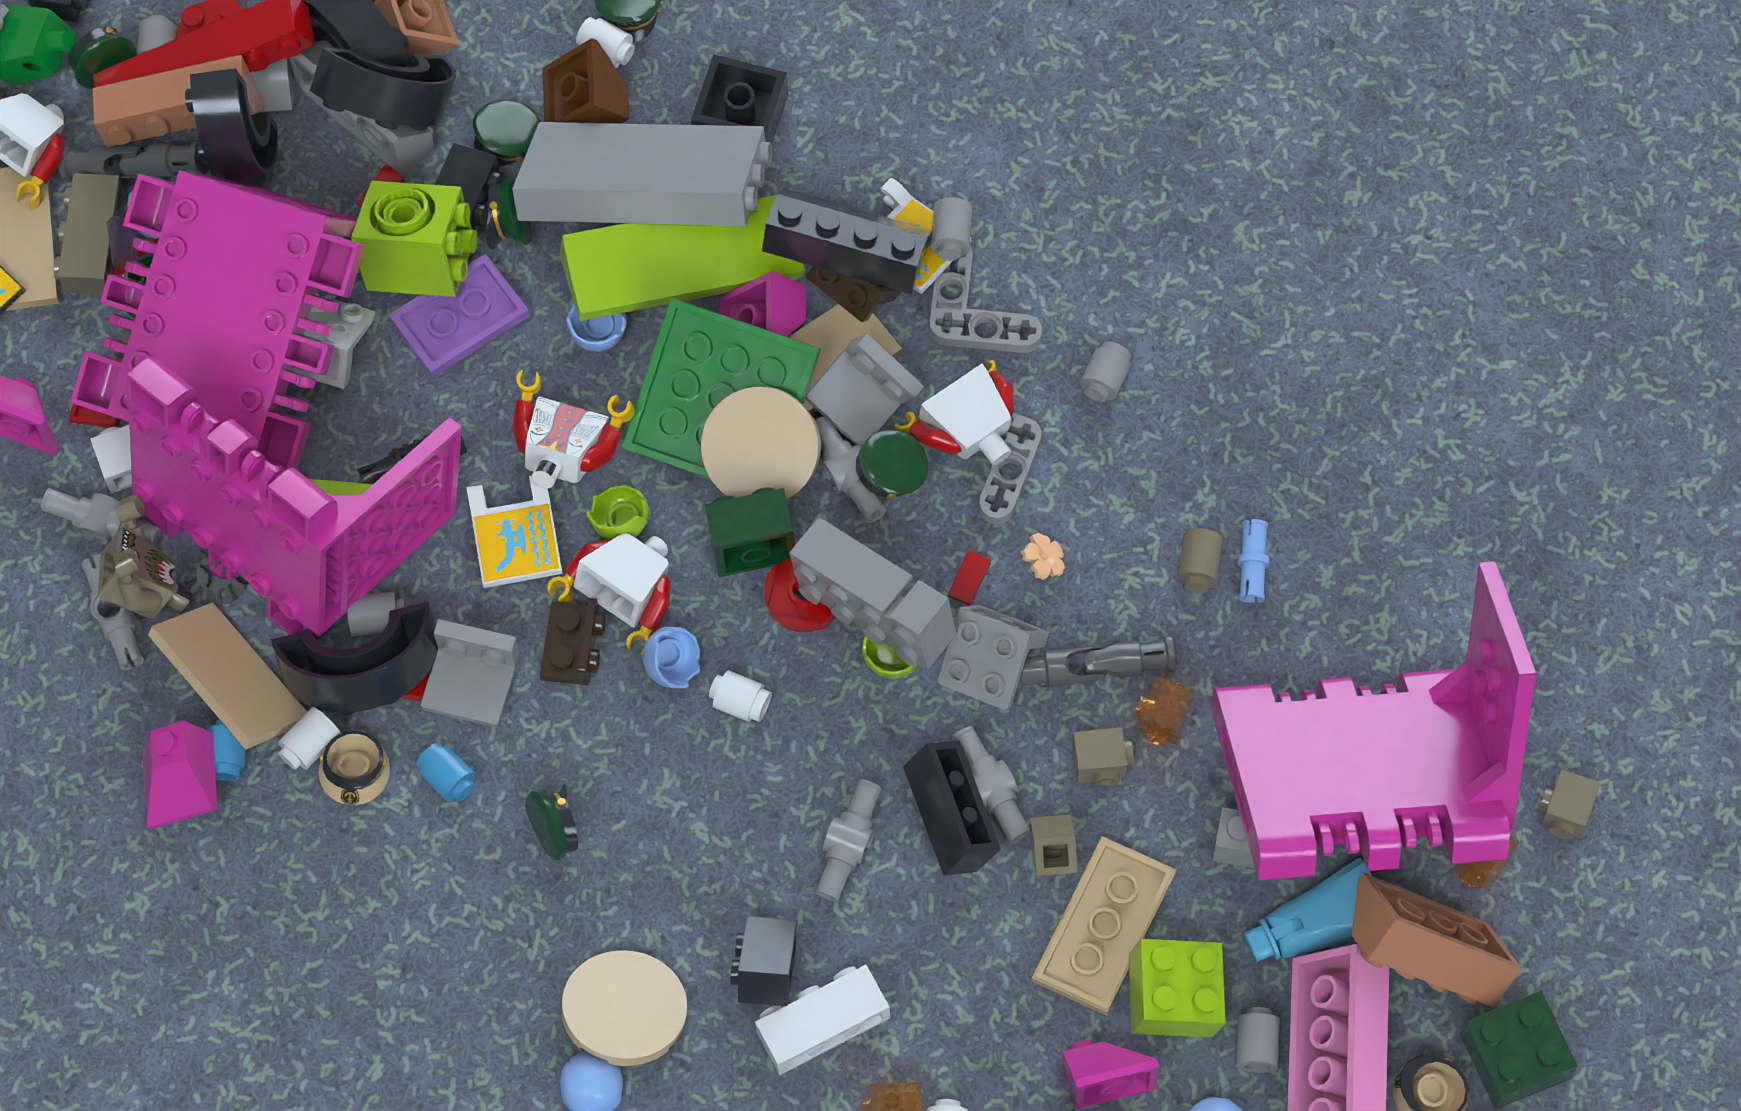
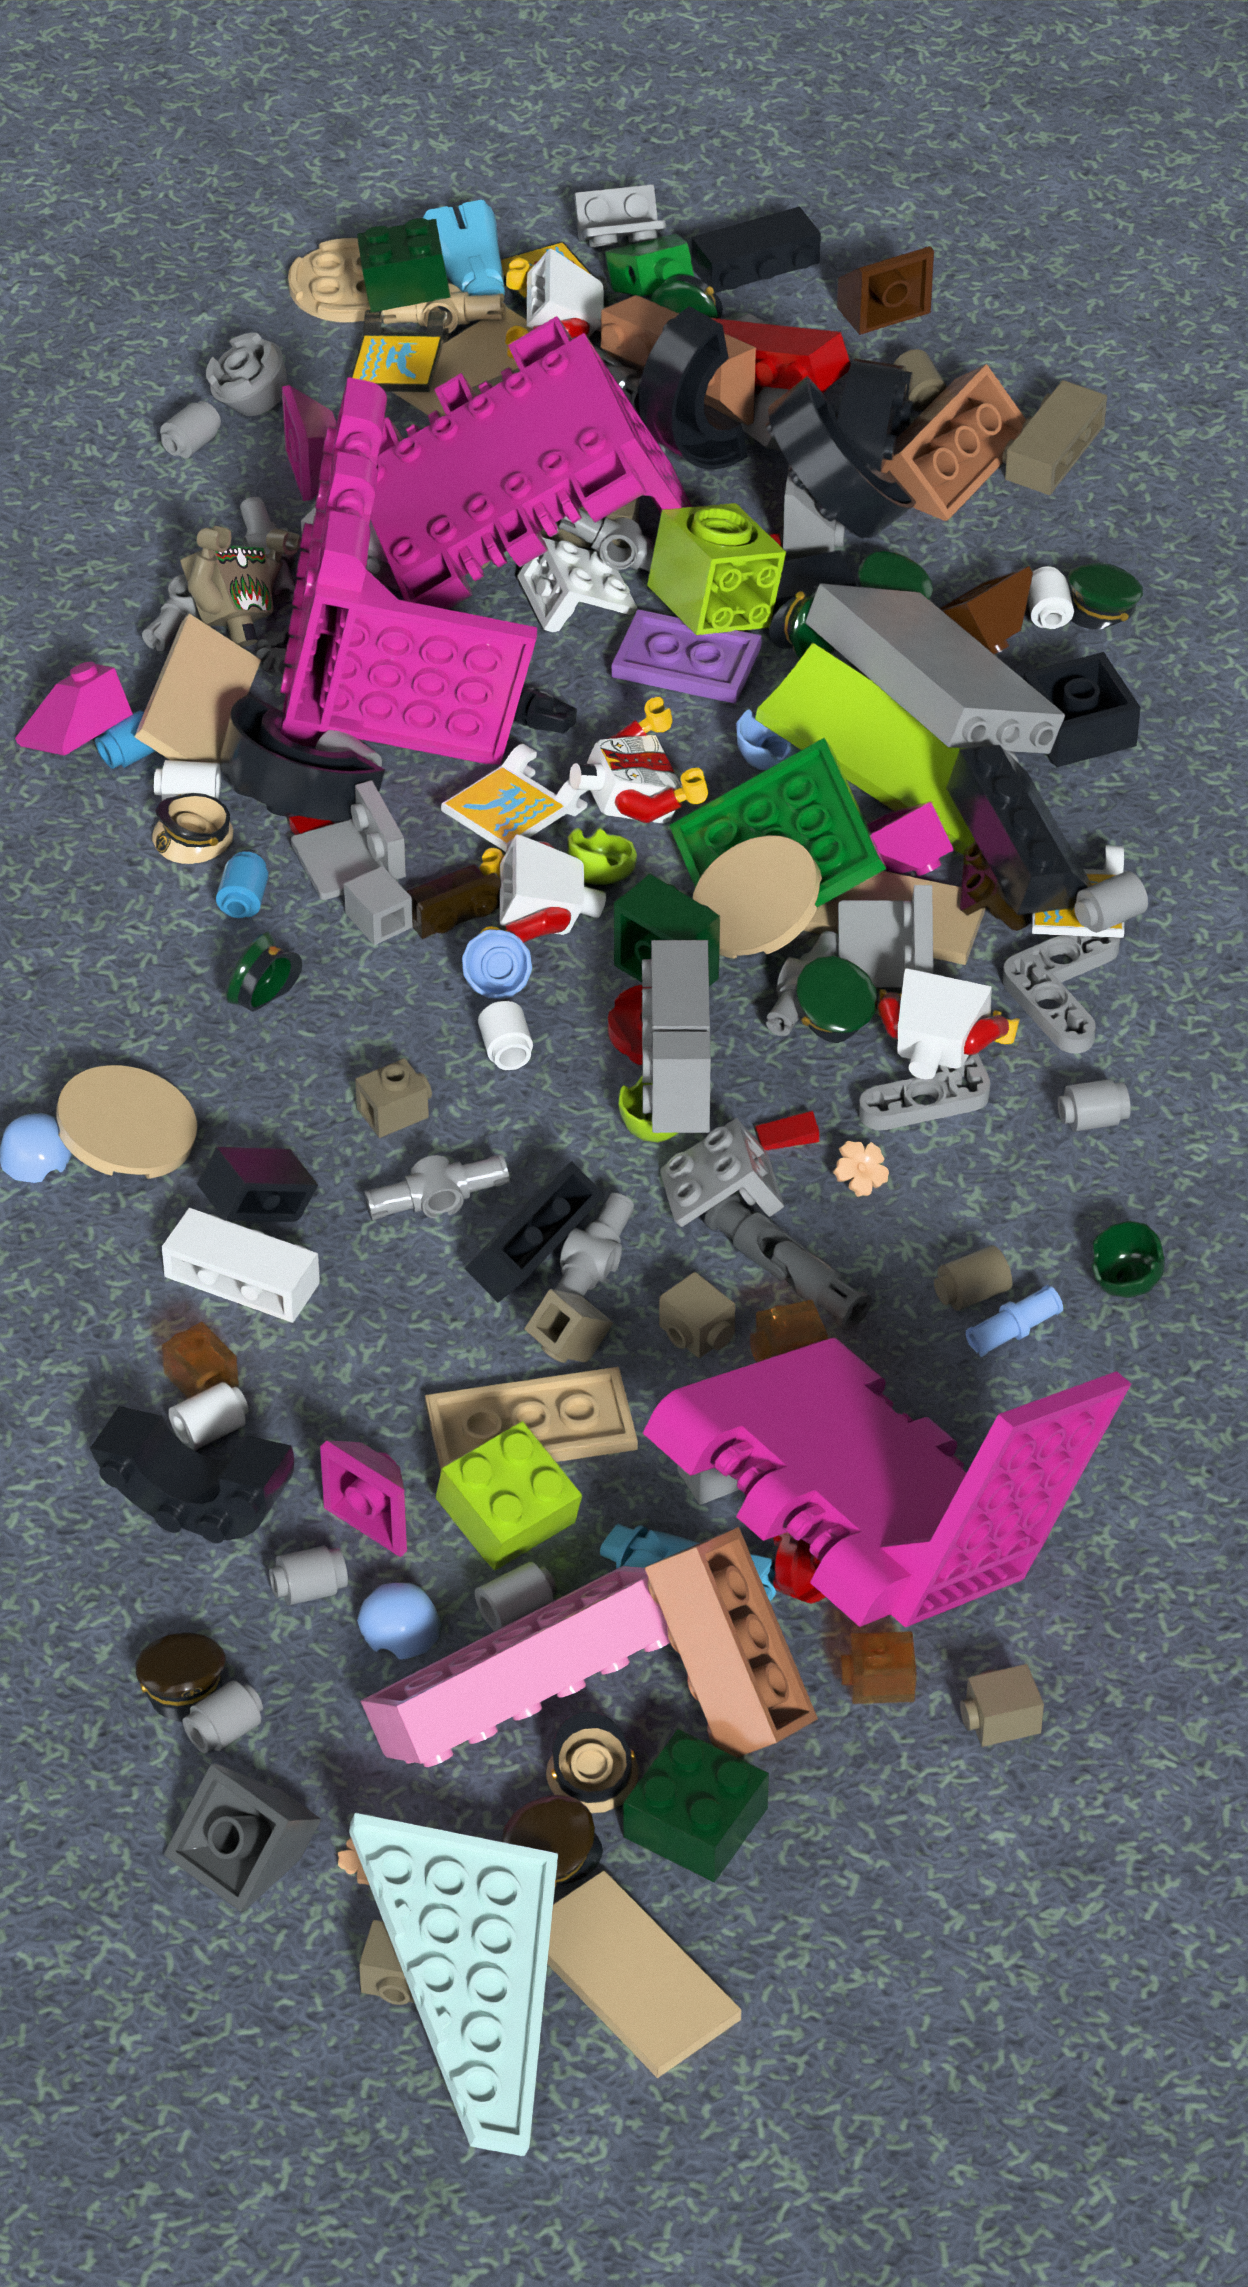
camera: 50 degrees right, 20 degrees down
(542, 694) = (378, 905): none -> light grey brick
(742, 812) = (392, 1097): none -> dark tan brick
(1266, 447) = (1129, 1251): none -> dark green hair

